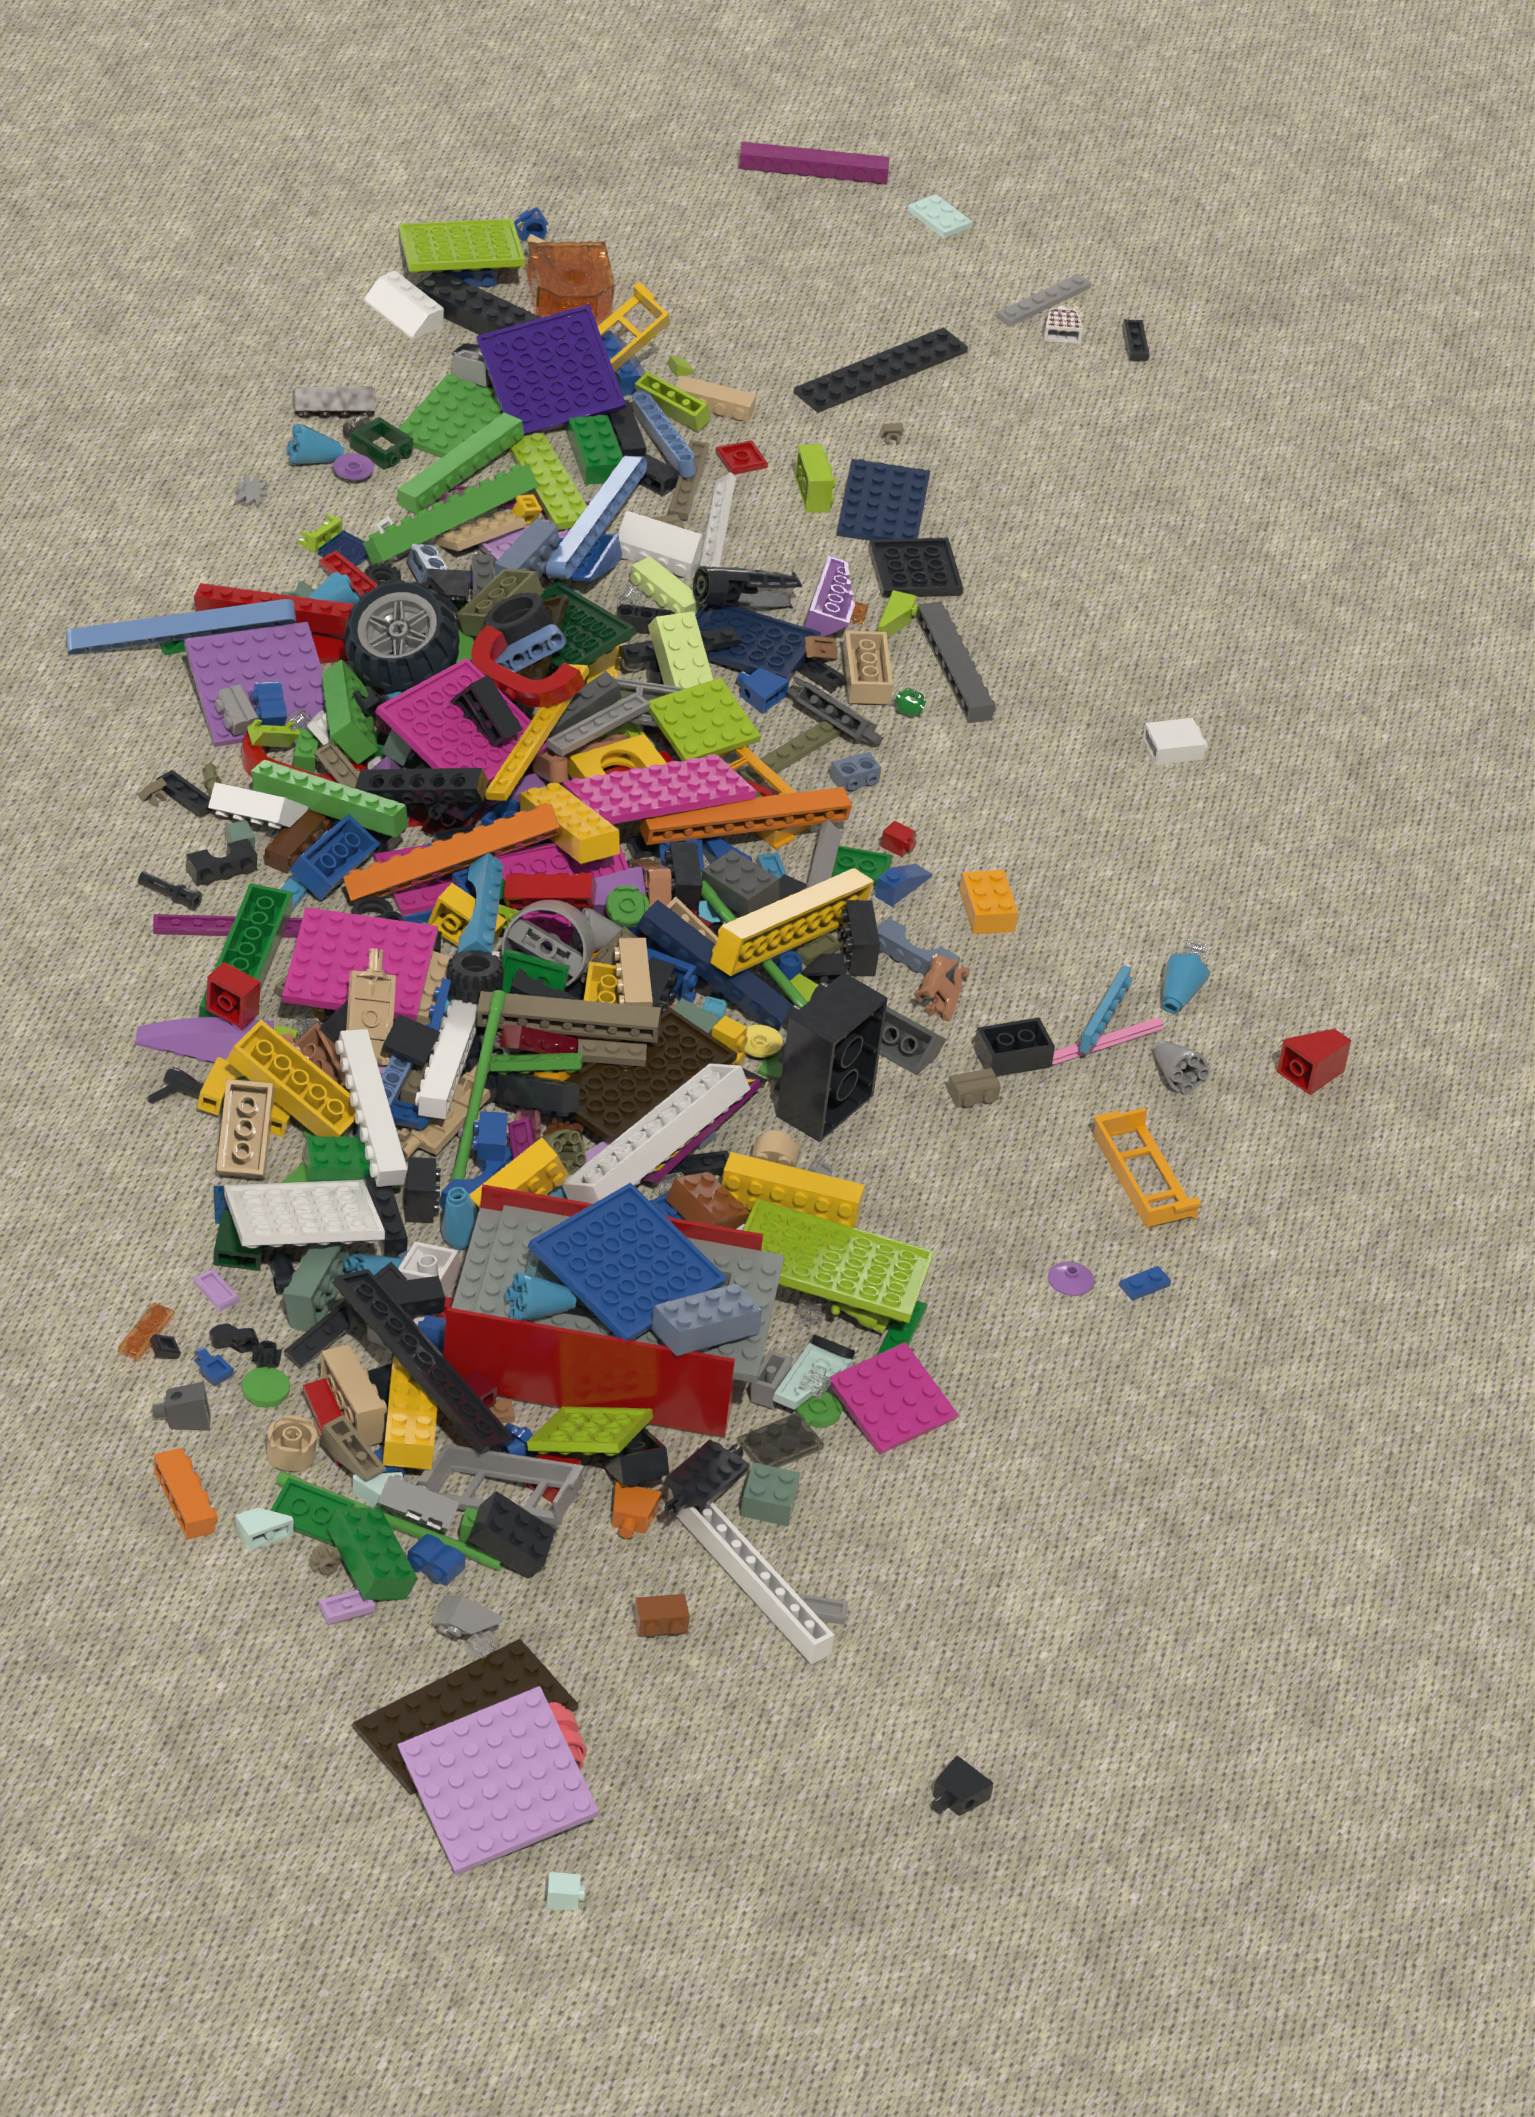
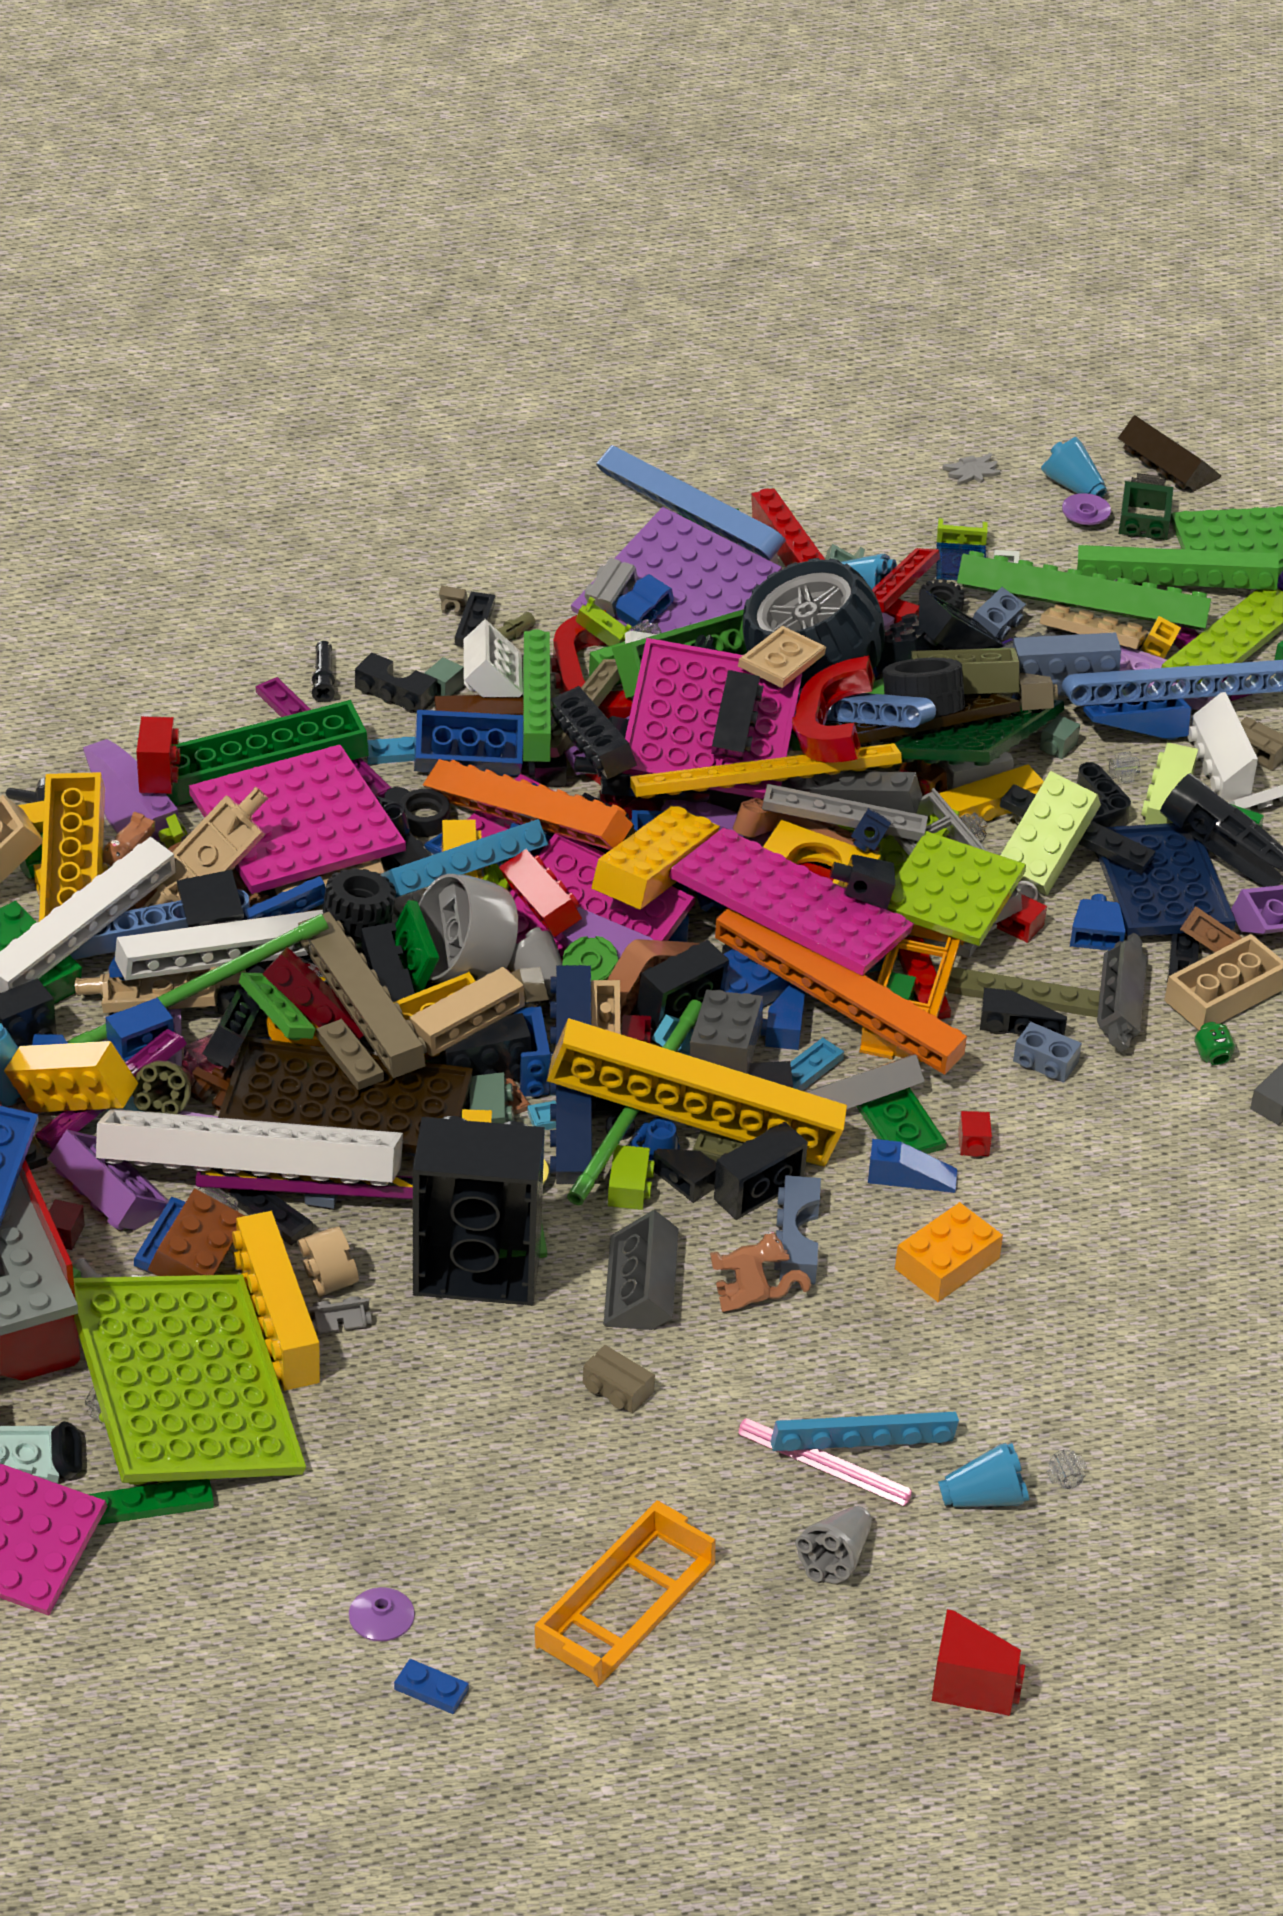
camera: 60 degrees right, 0 degrees up
(452, 660) = (782, 656): none -> tan tile
(553, 583) = (1036, 692): none -> dark tan slope
(629, 721) = (874, 820): none -> dark blue brick
(670, 744) = (866, 879): none -> black torso
(809, 766) = (1012, 1013): none -> black slope
(1014, 1046) = (716, 1380): black brick -> none

